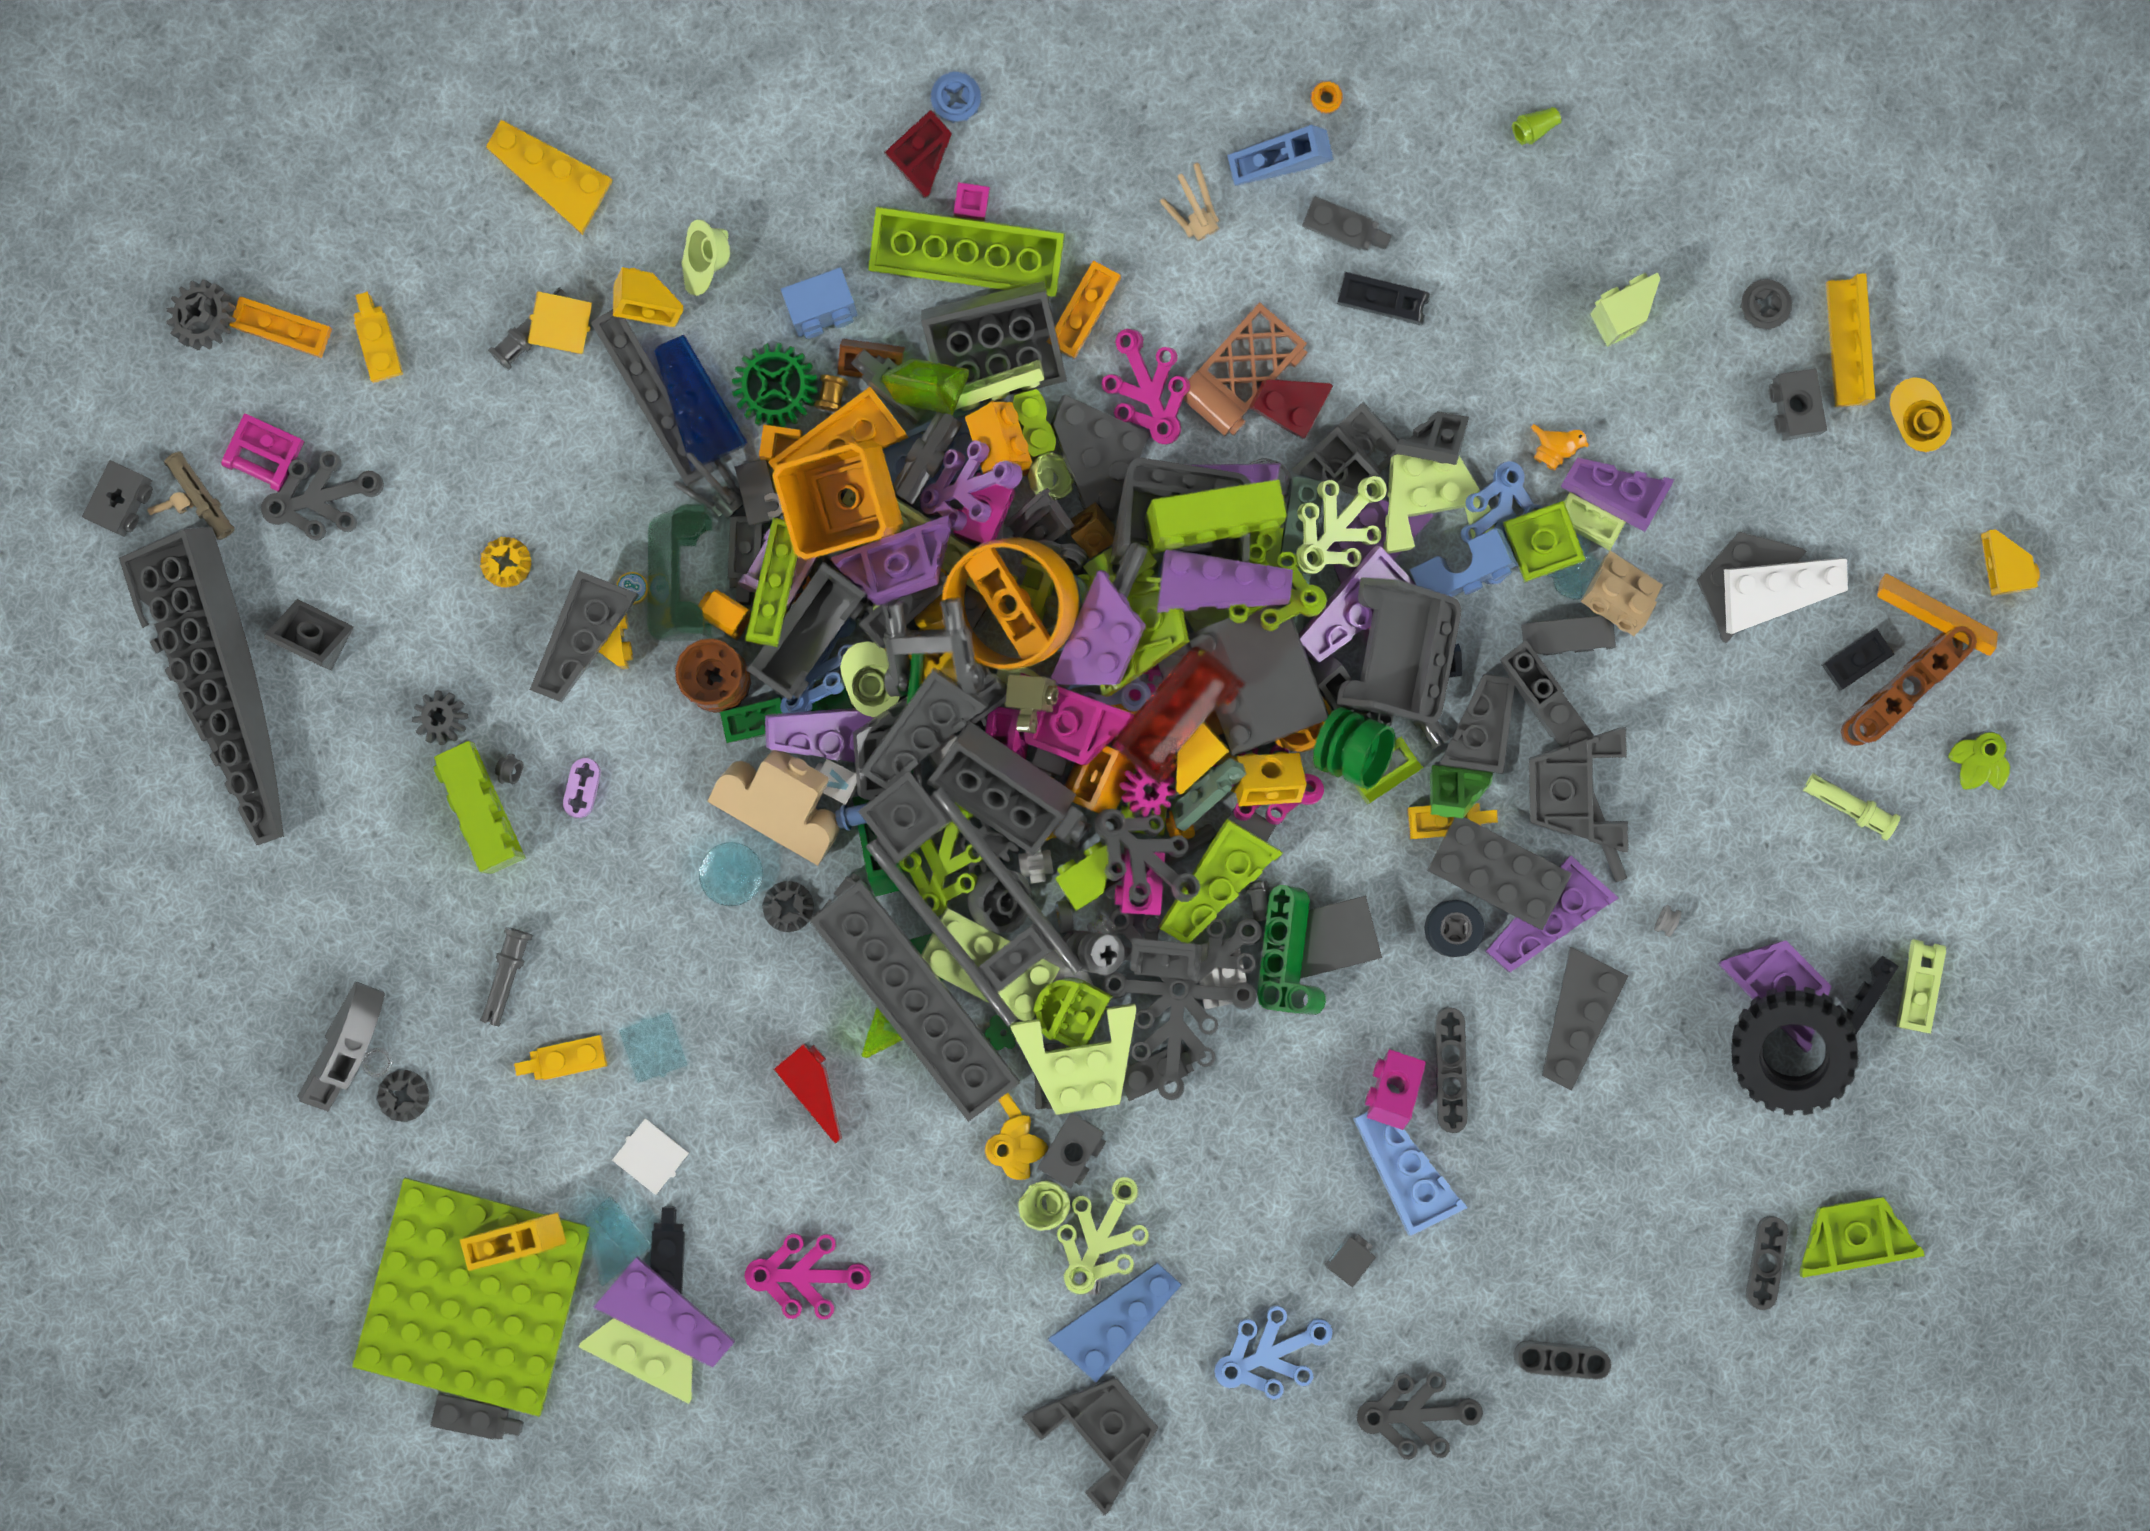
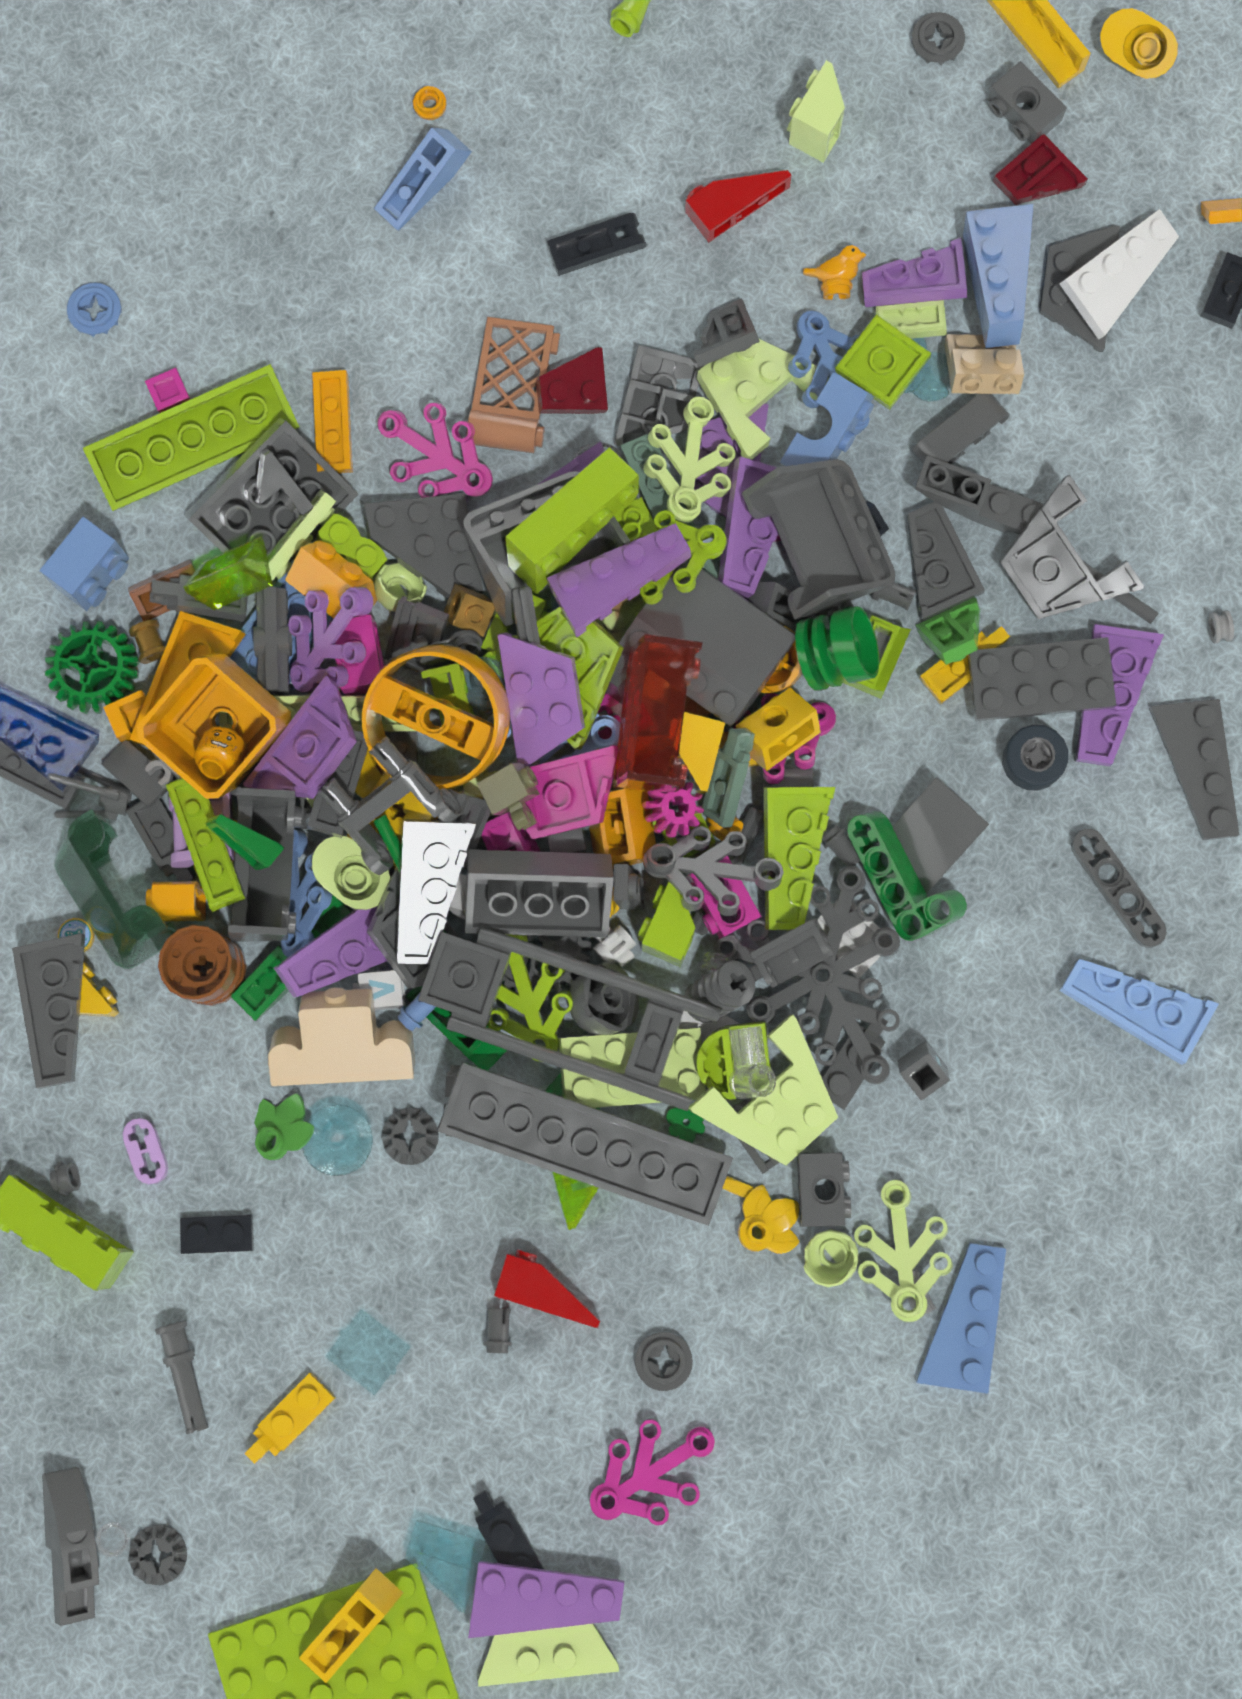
camera: 25 degrees left, 5 degrees down
(596, 885) = (216, 1234): none -> black plate
(650, 1156) = (431, 1457): white piece -> none
(699, 834) = (285, 1124): none -> bright green plate
(760, 1096) = (498, 1331): none -> dark grey pin
(806, 608) = (248, 844): none -> green slope
(828, 523) = (219, 752): none -> light orange head
(853, 1200) = (675, 1374): none -> dark grey gear
(921, 151) = (93, 376): dark red wing -> none
(1006, 331) = (273, 477): none -> slope
(1064, 916) = (672, 977): dark grey tile -> none
(1079, 1021) = (750, 1064): none -> clear piece
(1110, 1424) = (1029, 1425): dark grey wing -> none
(1200, 221) = (388, 277): tan plant -> none
(1207, 1111) = (923, 1070): none -> dark grey brick
(1268, 1354) = (1128, 1260): light blue plant -> none
(1344, 225) = (520, 203): dark grey hinge -> none
(1351, 1259) = (1146, 1121): dark grey brick -> none
(1405, 1074) = (1081, 918): dark pink brick -> none
(1509, 332) = (731, 200): none -> red slope
(1688, 520) = (998, 266): none -> medium blue wedge
(1771, 467) = (1039, 173): none -> dark red wing

